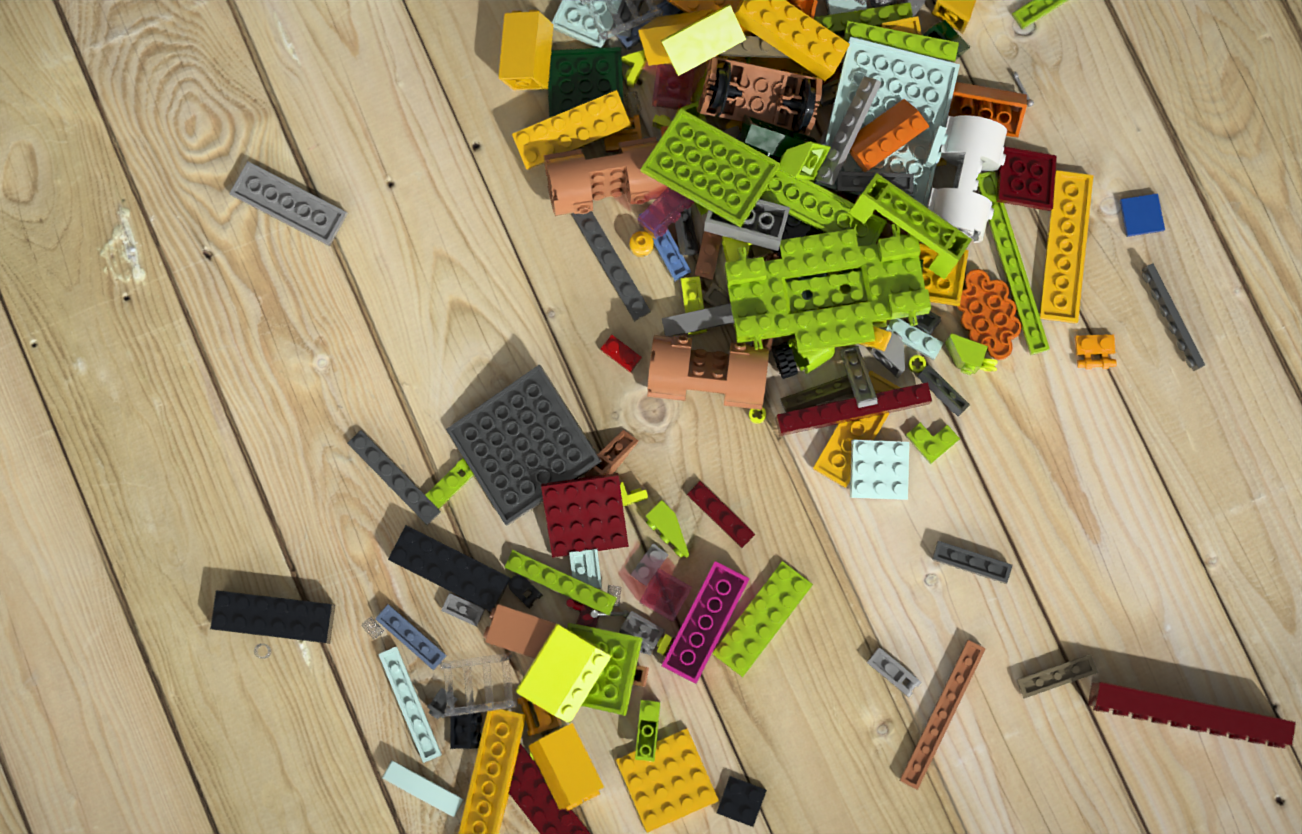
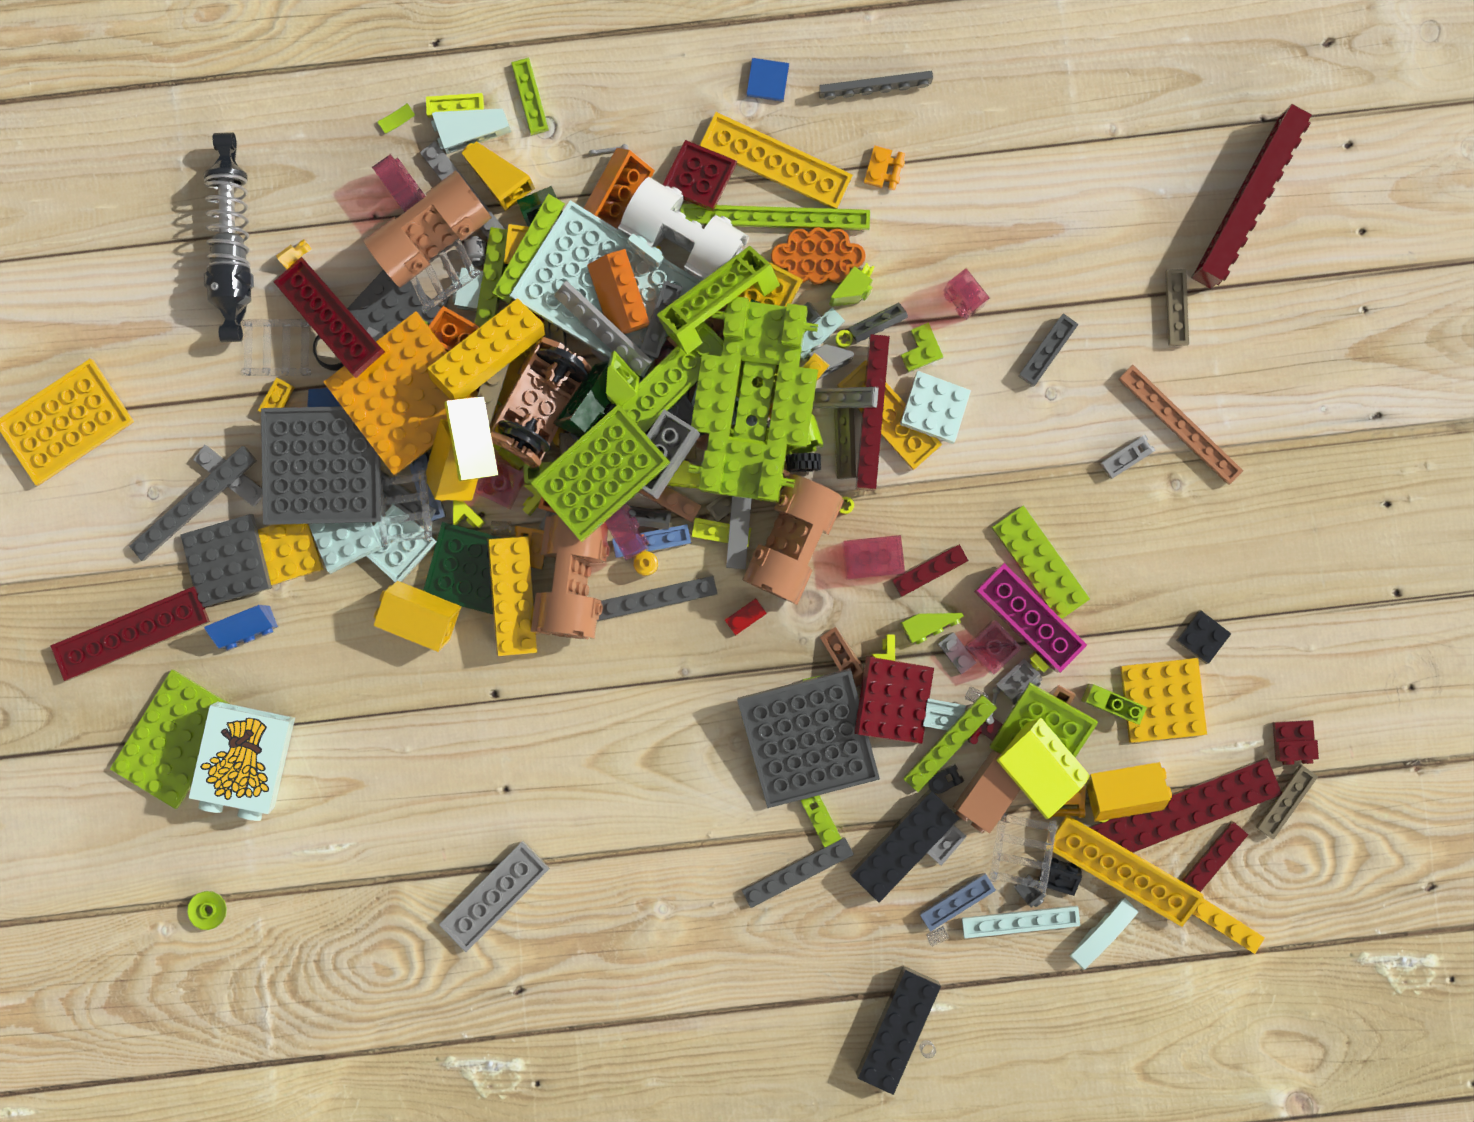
camera: 75 degrees left, 5 degrees up
(715, 455) = (873, 557): none -> clear pink brick
(998, 464) = (965, 294): none -> clear pink brick

